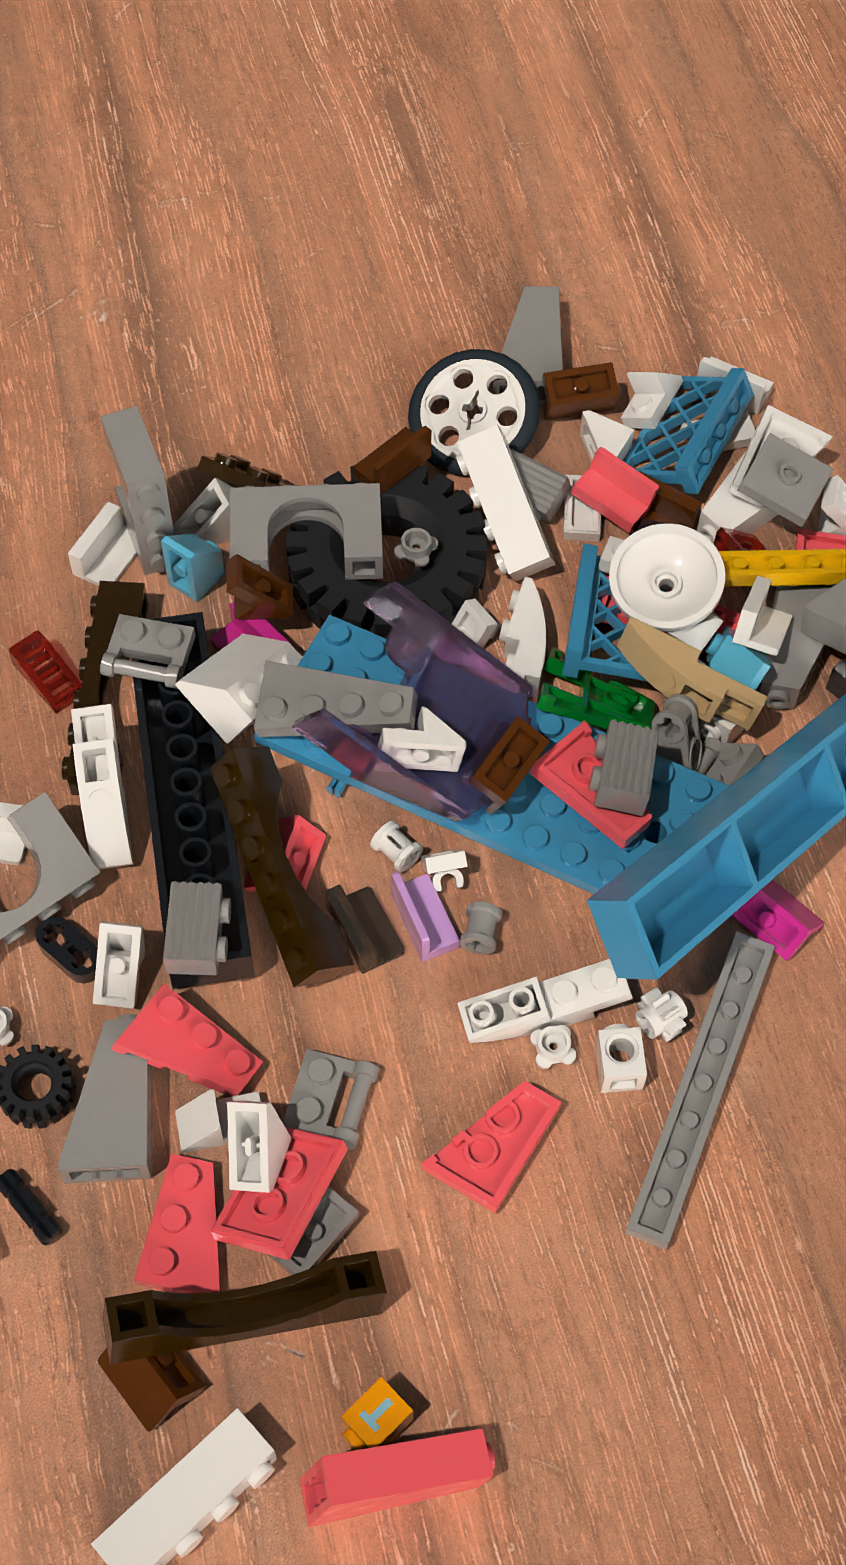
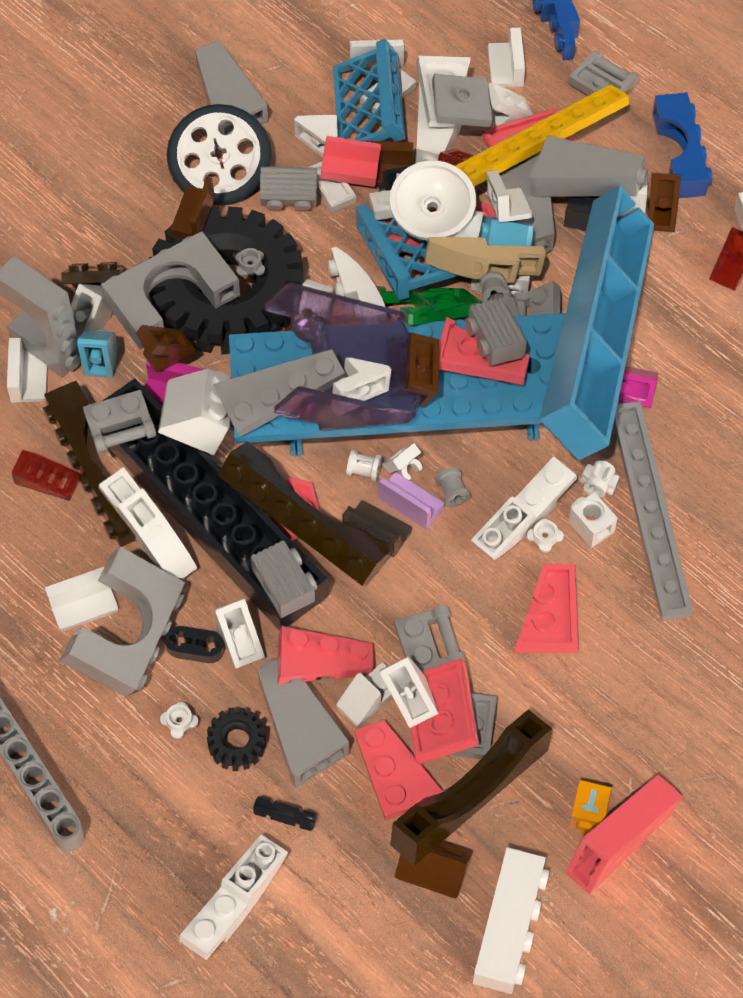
camera: 30 degrees left, 0 degrees up
(505, 503) = (286, 204): white brick -> none
(580, 390) = (282, 104): reddish brown panel -> none
(651, 398) = (329, 89): white slope -> none

